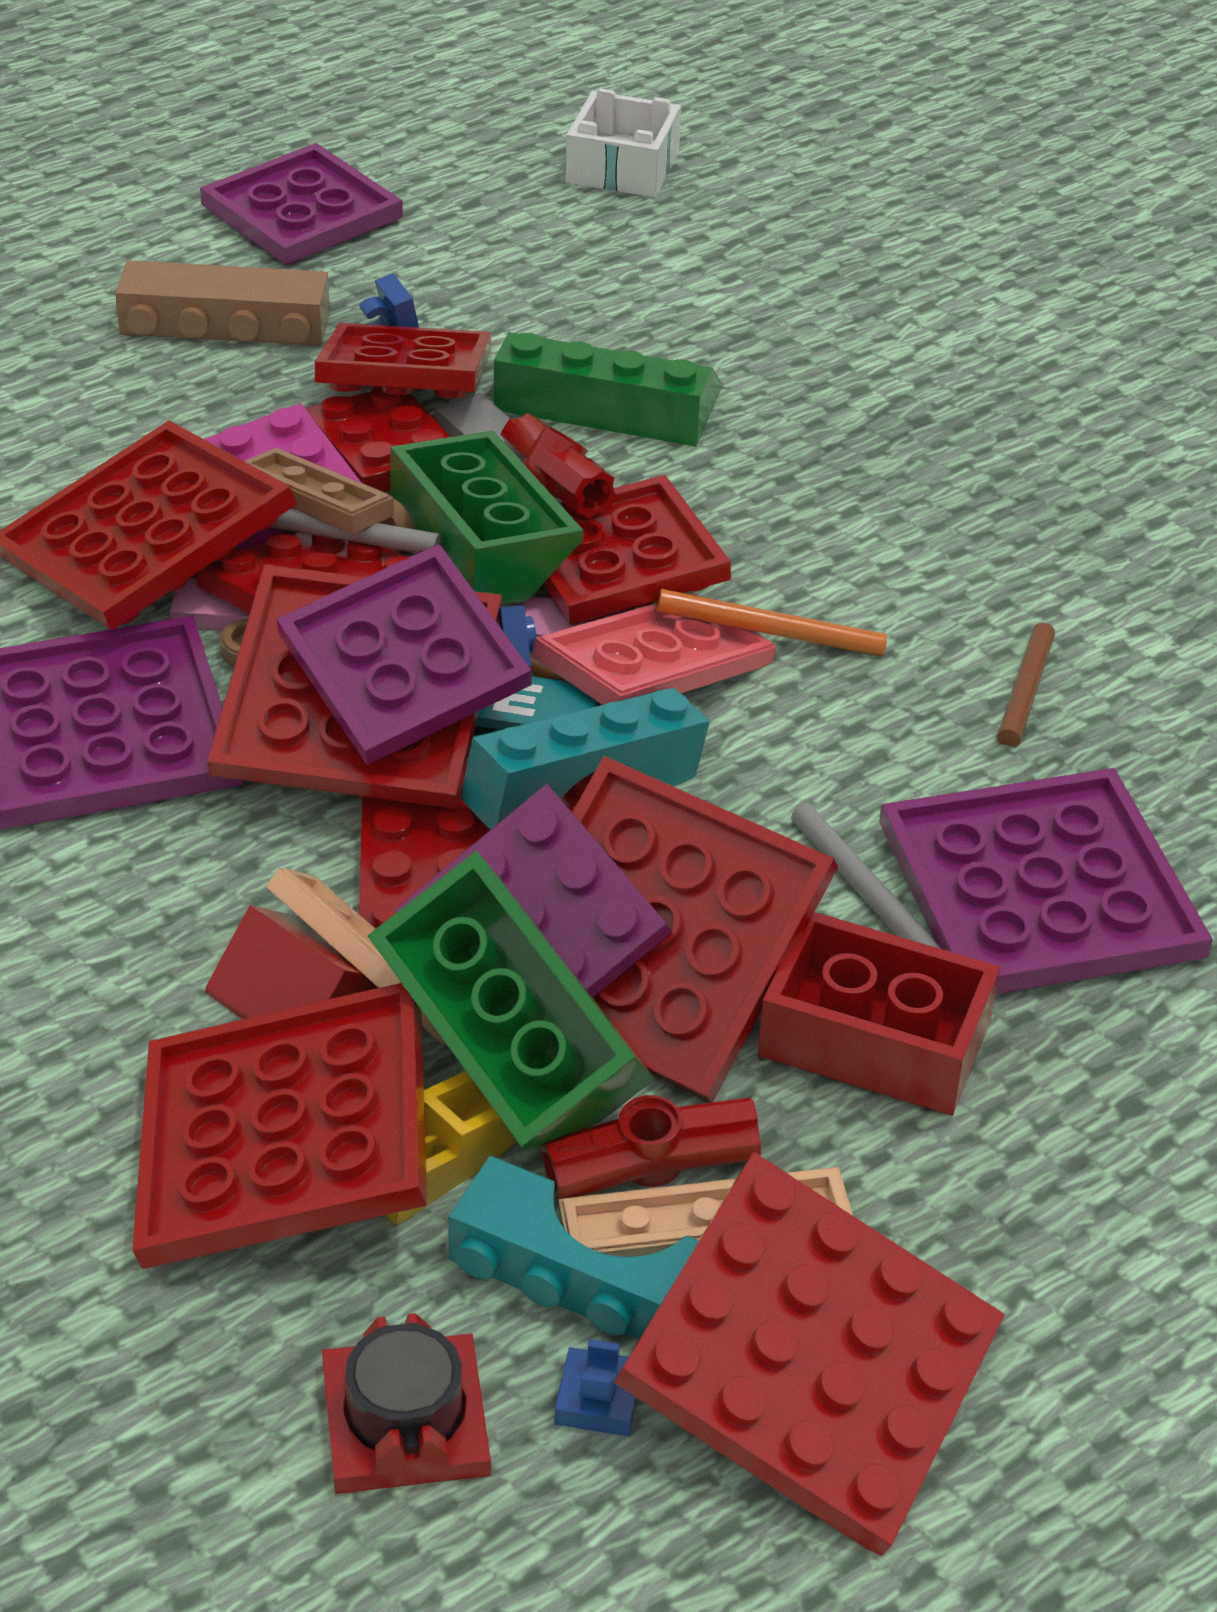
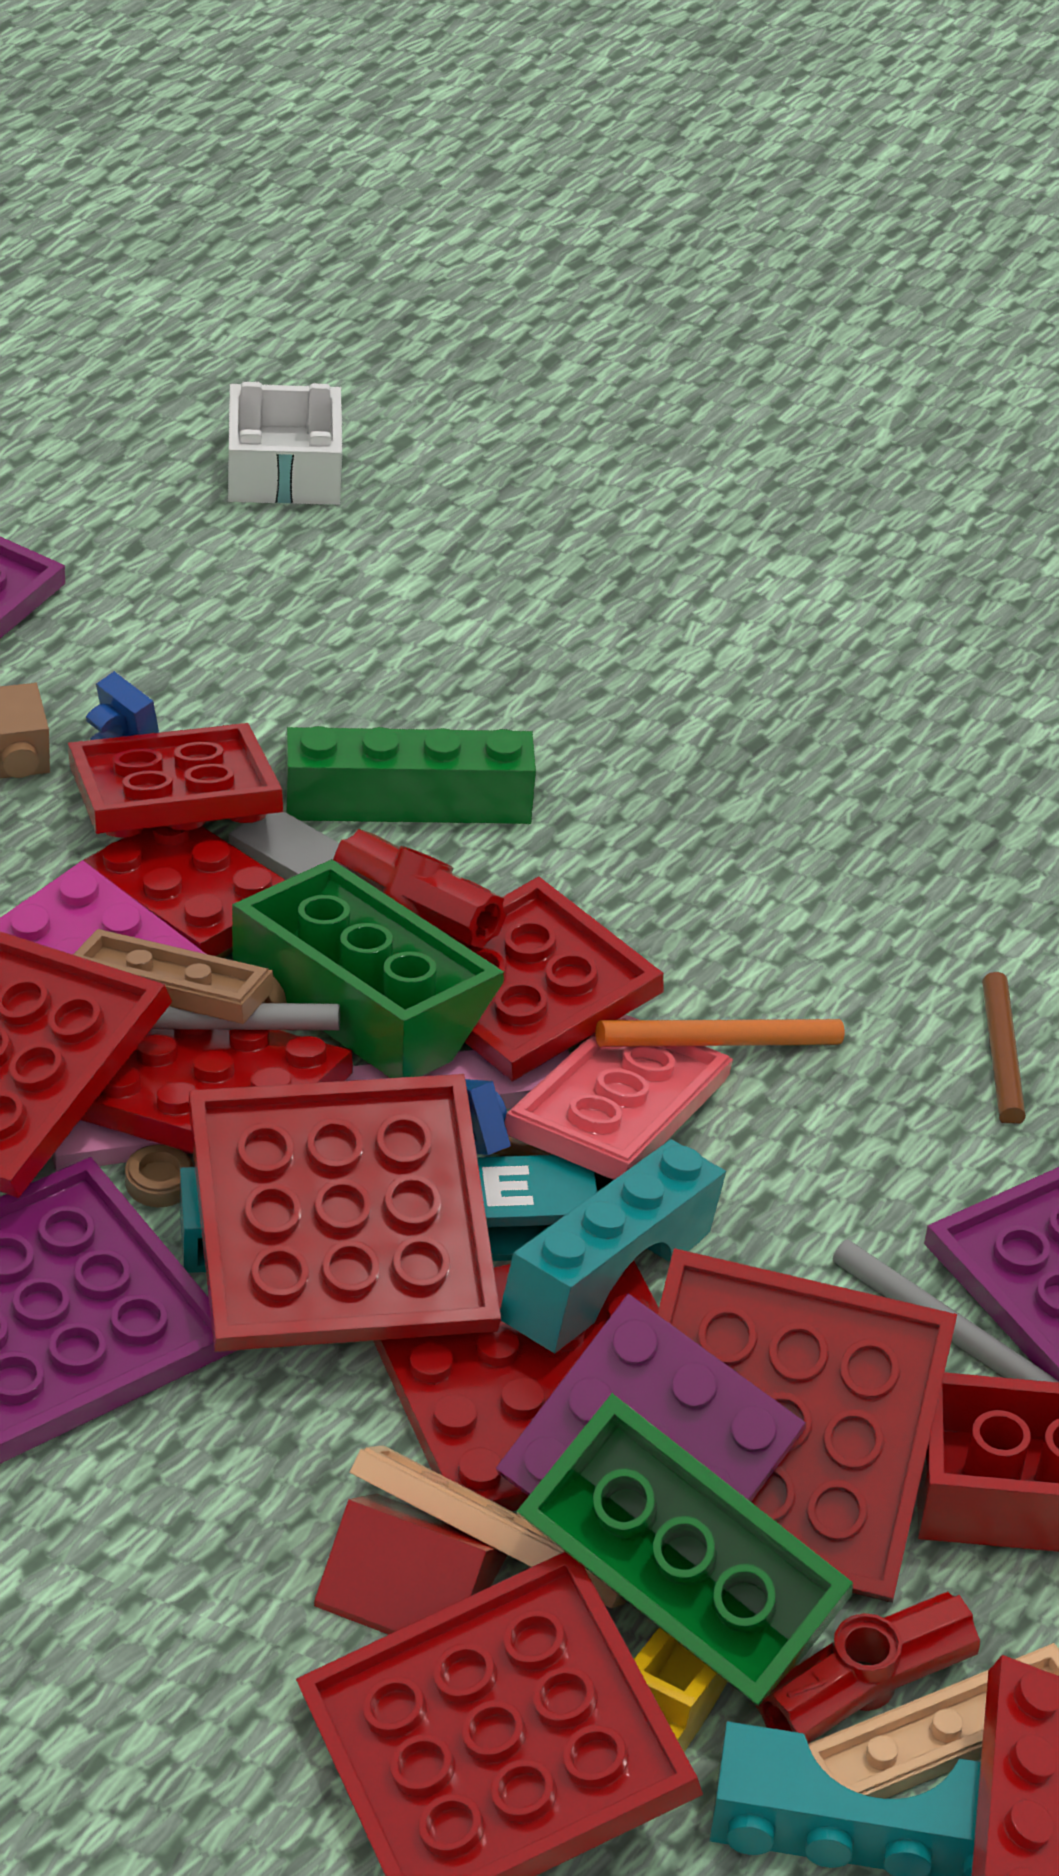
camera: 20 degrees left, 0 degrees up
(404, 653) = (393, 1167): magenta plate -> none

